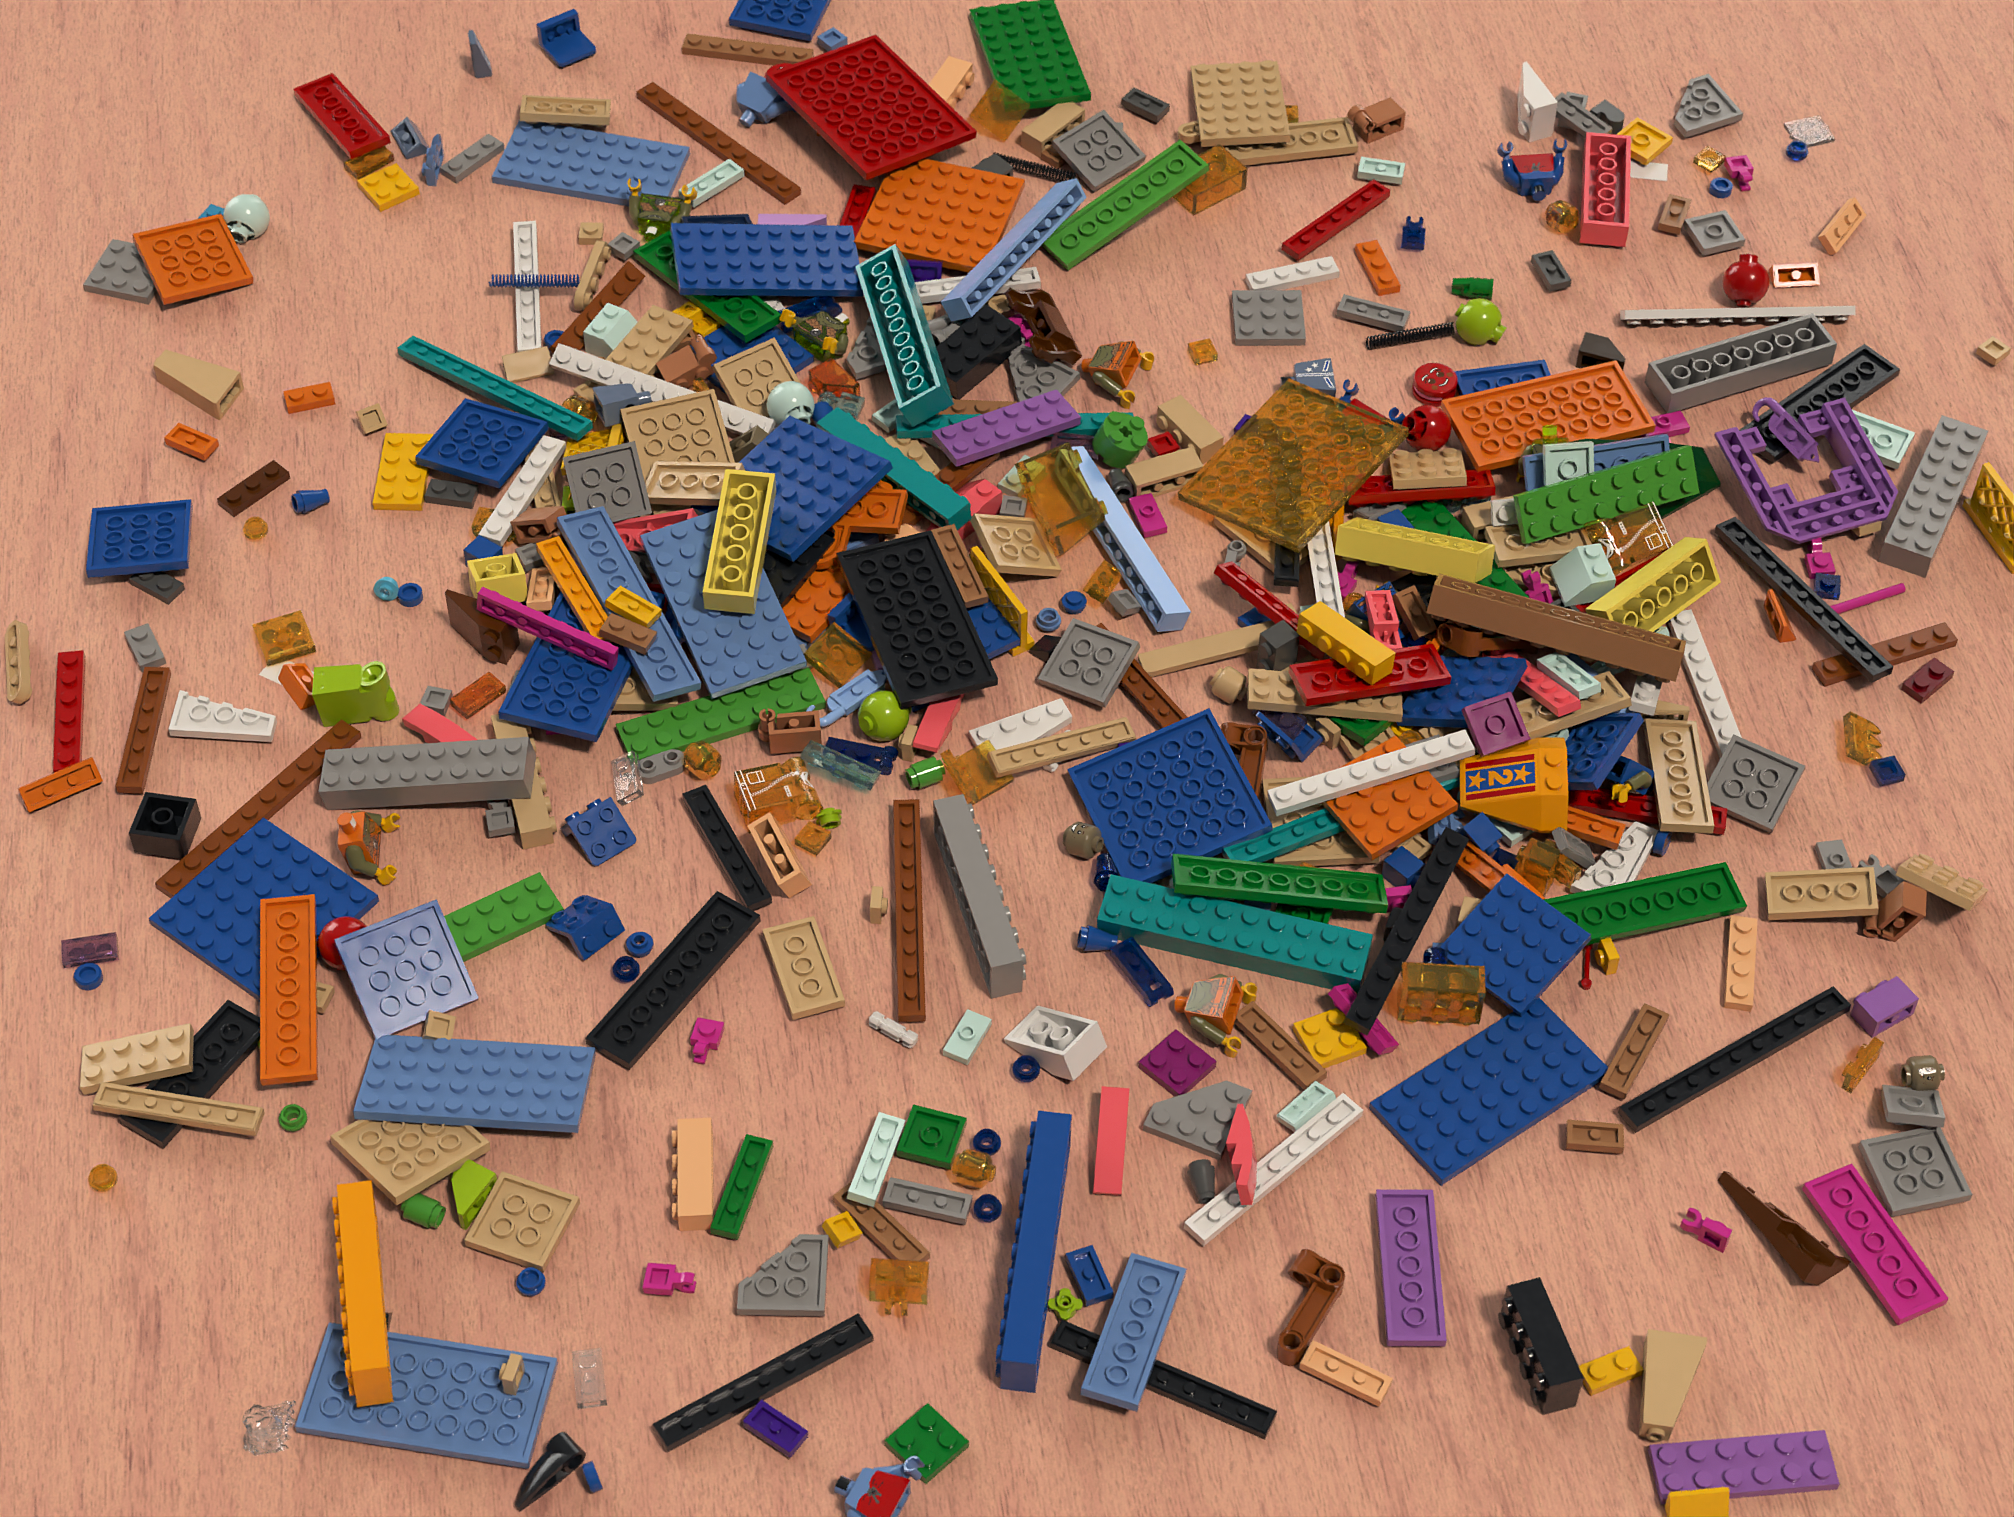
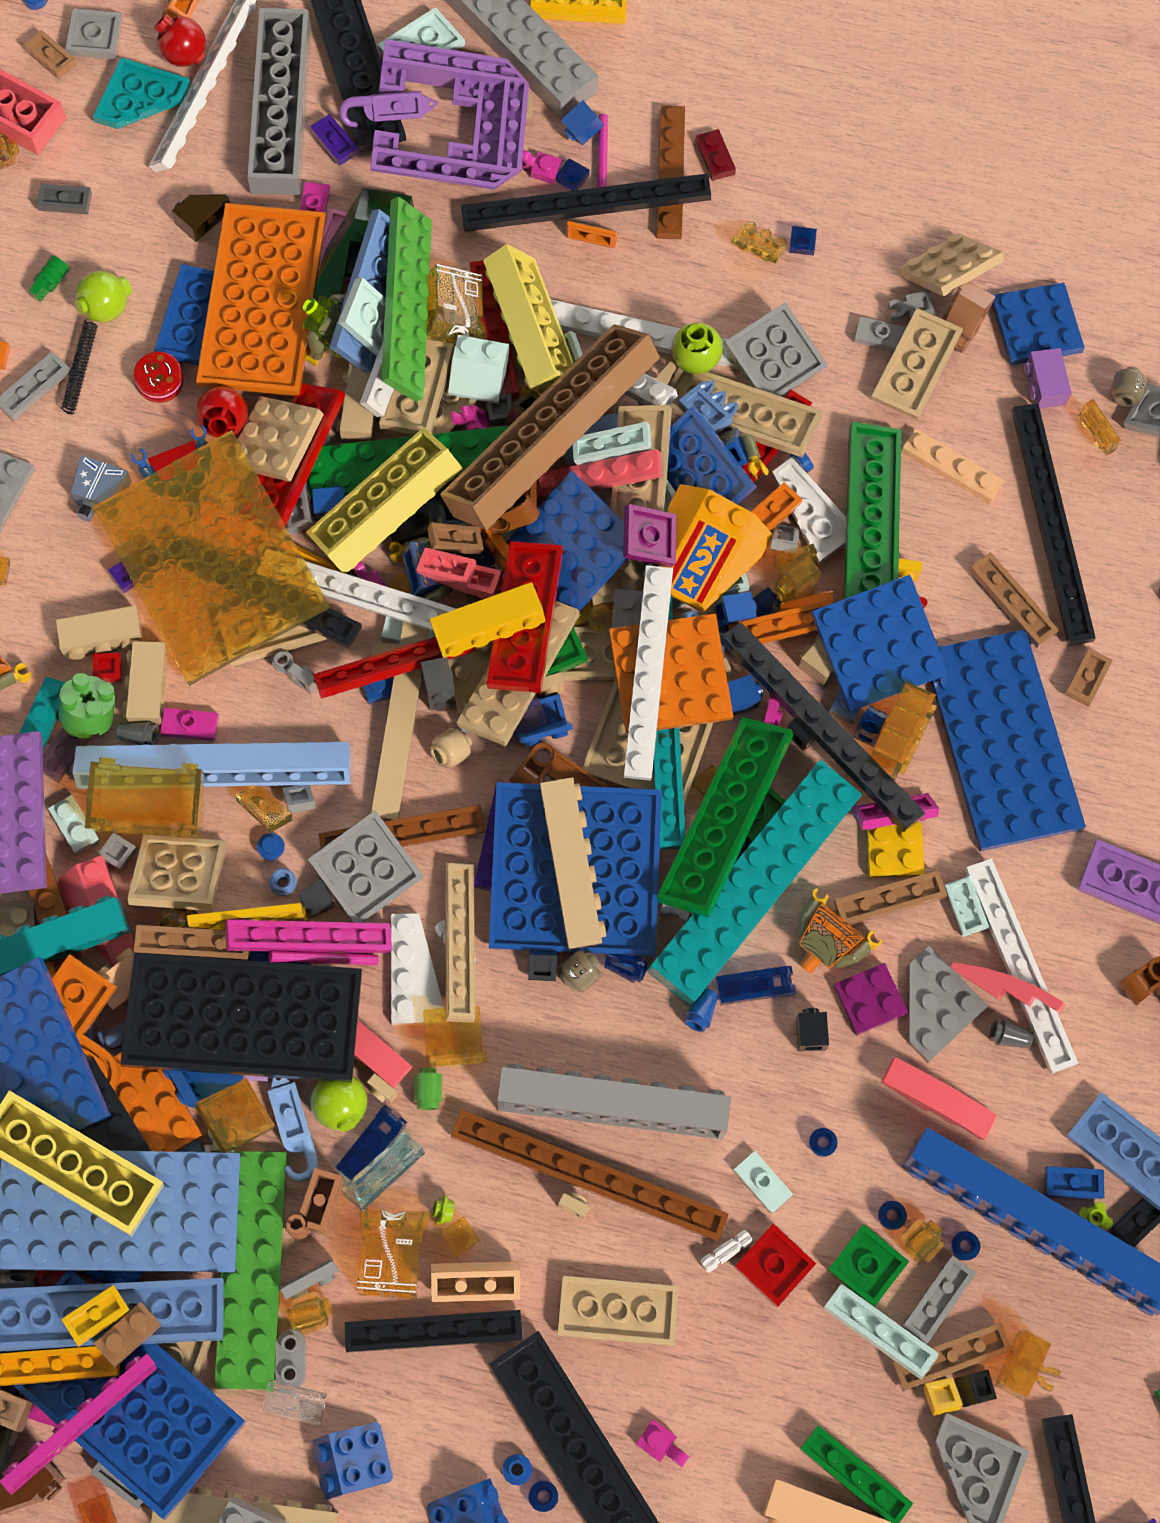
camera: 70 degrees left, 20 degrees up
(735, 754) = (320, 1274): none -> light grey plate
(860, 1258) = (975, 1388): none -> black slope
(897, 1067) = (775, 1265): none -> red plate
(996, 660) = (323, 958): none -> dark pink bar
(1006, 638) = (307, 936): none -> dark pink plate
(1058, 1041) = (805, 1101): white slope -> none
(1073, 811) = (542, 965): none -> black plate
(1121, 1024) = (812, 1030): none -> black brick
(1167, 784) = (571, 864): none -> tan brick
(1659, 744) = (710, 405): none -> medium blue plate
(1681, 278) = (138, 93): none -> teal plate
(1710, 714) = (697, 348): none -> lime brick
(1734, 413) = (334, 140): none -> dark purple plate
(1880, 569) = (581, 123): none -> blue brick
(1944, 984) = (1036, 322): none -> blue plate

